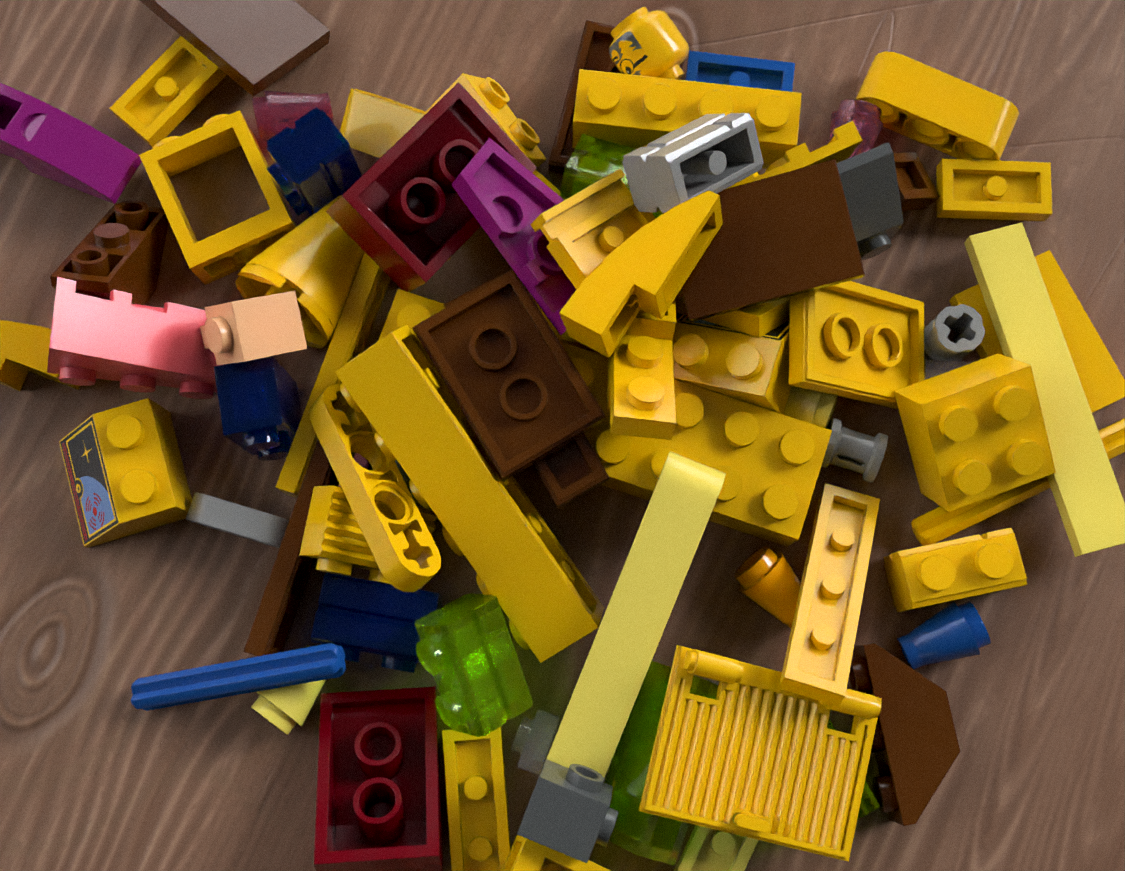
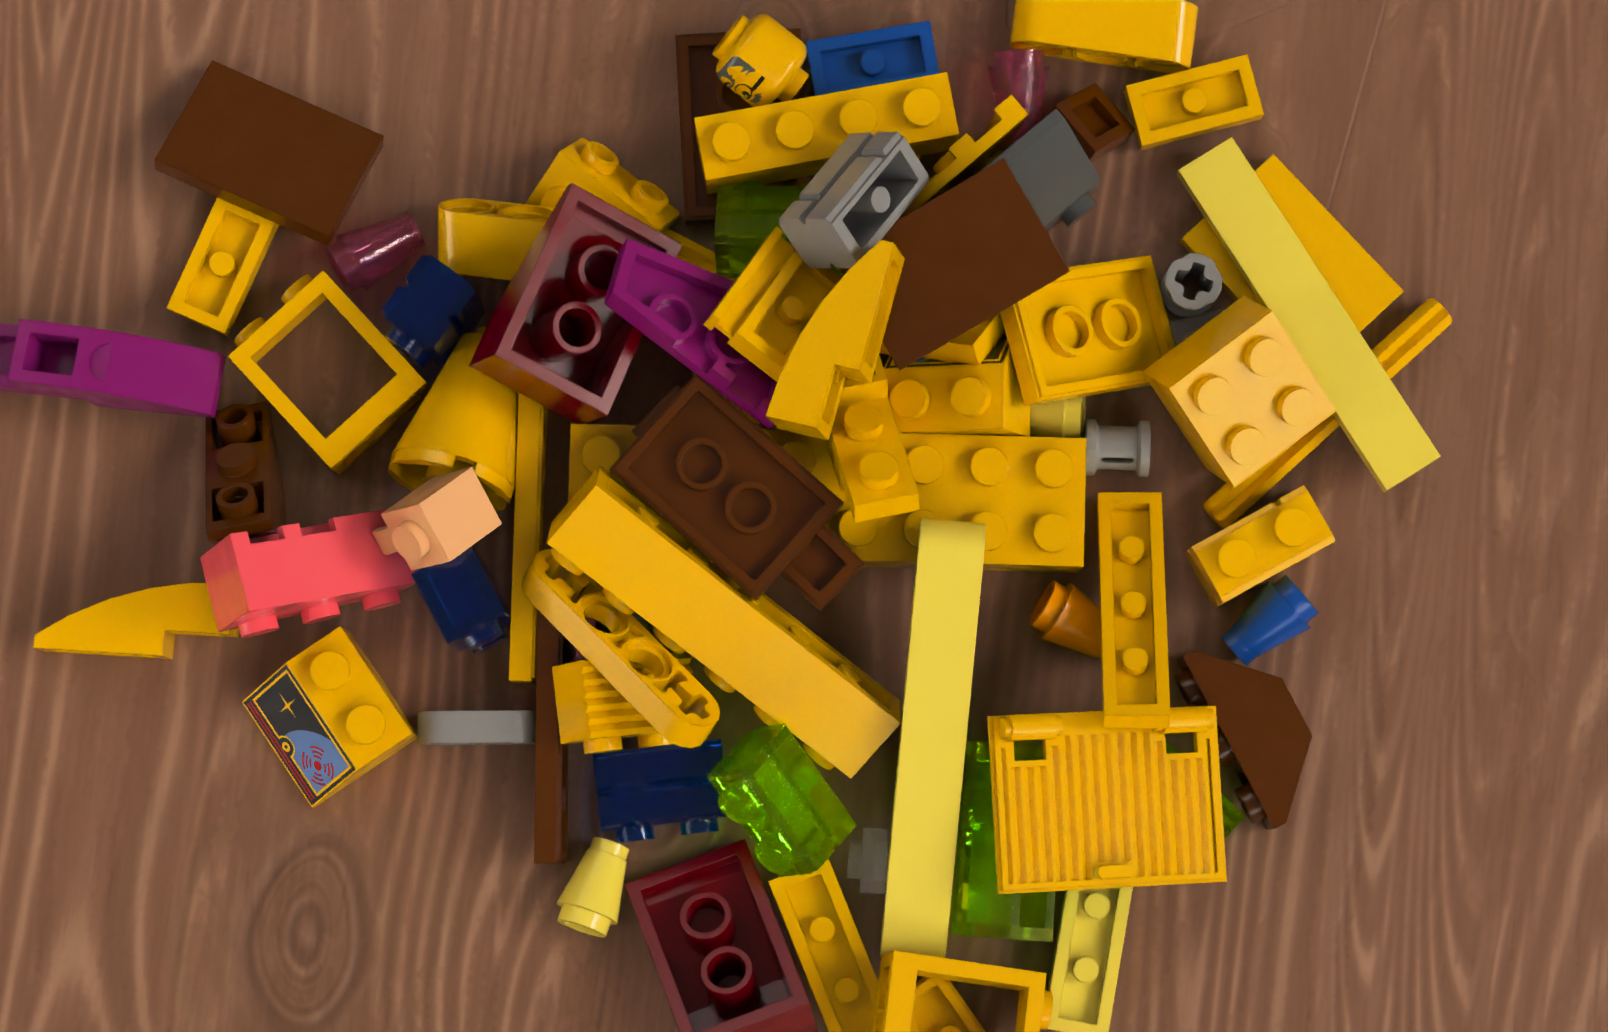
camera: 20 degrees left, 5 degrees up
(239, 677) = (535, 892): blue axle -> none
(569, 810) = (927, 916): dark grey brick -> none

